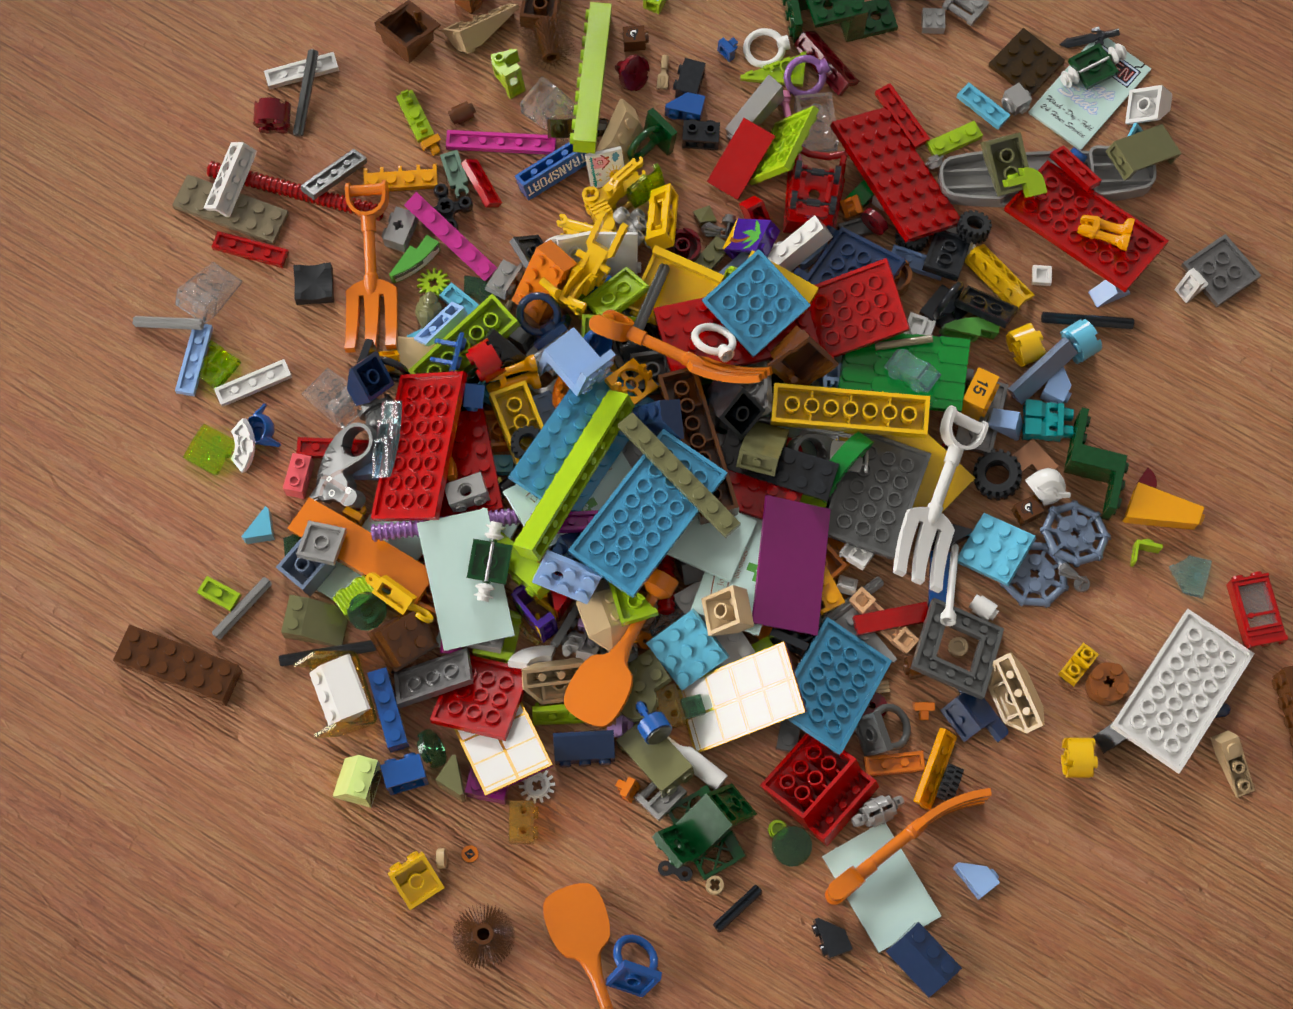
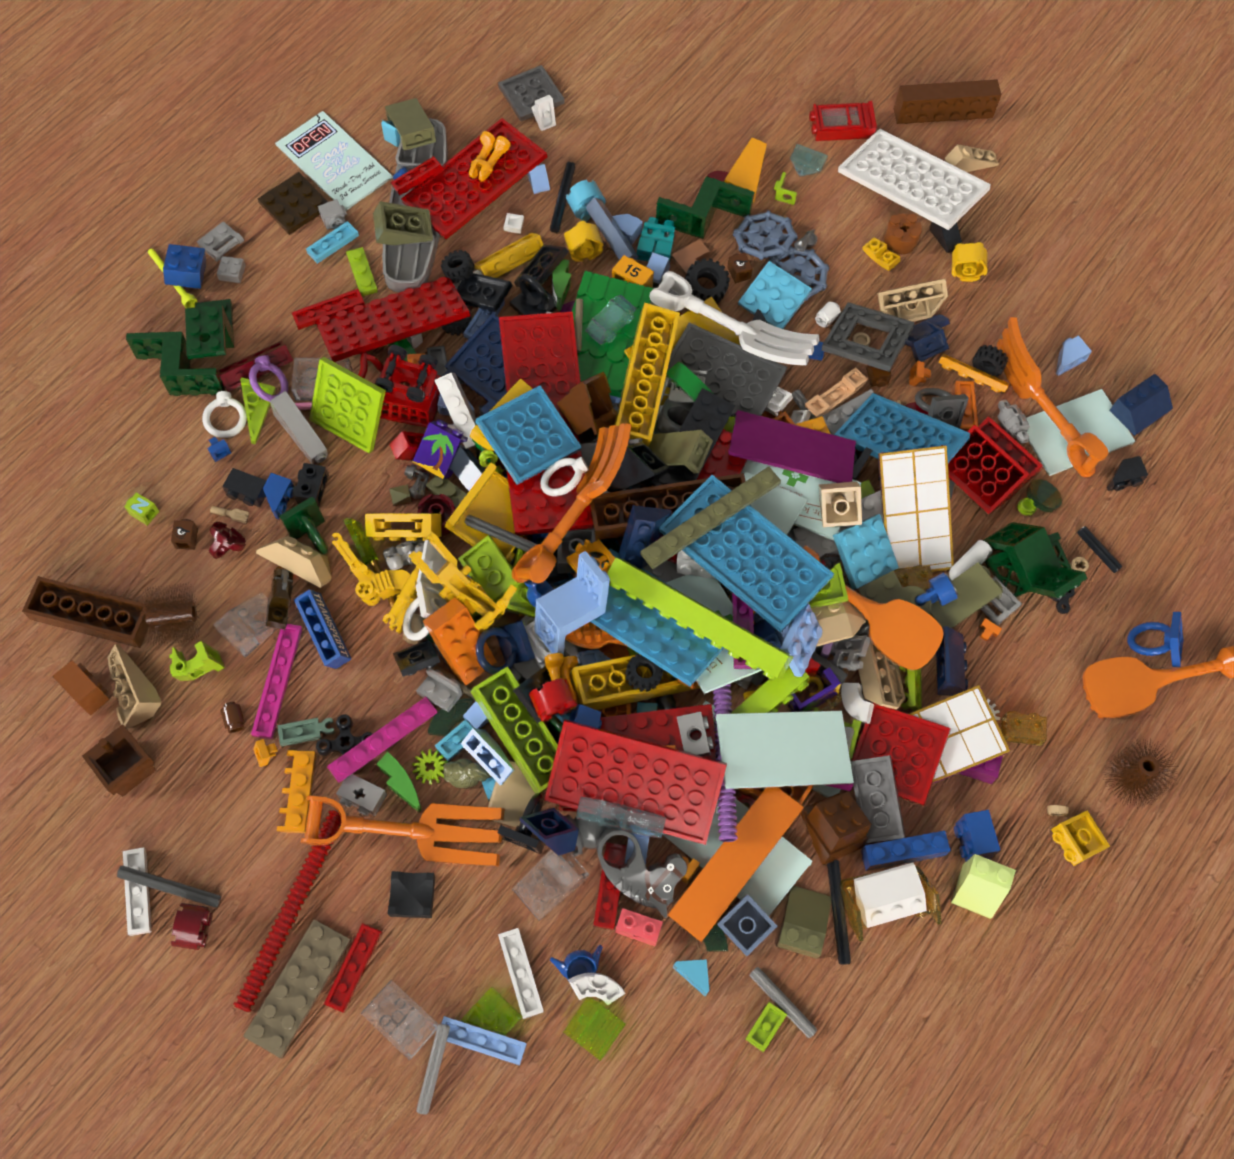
camera: 85 degrees left, 5 degrees down
(177, 665) = (847, 1078): reddish brown brick -> none
(231, 179) = (266, 976): white fence -> none
(321, 543) = (729, 899): light grey plate -> none
(333, 174) = (282, 860): plate -> none
(345, 595) = (786, 871): lime brick -> none
(366, 611) = (805, 858): clear green tile -> none
(391, 354) = (513, 815): light orange tile -> none
(399, 598) = (799, 819): yellow piece -> none
(414, 115) = (223, 769): lime plate -> none
(431, 748) = (953, 807): clear green tile -> none
(451, 780) = (981, 789): olive slope -> none
(459, 347) = (539, 729): blue plate -> none
(469, 853) = (1049, 785): orange sticker -> none
(481, 183) = (322, 704): red plate -> none
(489, 561) = (773, 718): dark green plate -> none
(592, 78) = (228, 573): lime brick -> none
(603, 165) = (332, 575): white tile -> none
(693, 706) = (917, 557): clear green tile -> none
(741, 158) = (349, 448): red tile -> none
(874, 221) = (440, 341): dark red piece -> none
(890, 618) = (835, 386): red tile -> none
(934, 161) = (383, 288): light grey plate -> none
(948, 616) = (841, 334): white piece -> none
(1031, 181) = (426, 208): lime brick -> none
(1048, 486) = (722, 245): white helmet -> none
(1090, 38) = (281, 149): black sword -> none
(1093, 66) = (312, 149): dark green plate -> none
(1148, 104) = (361, 117): white slope -> none

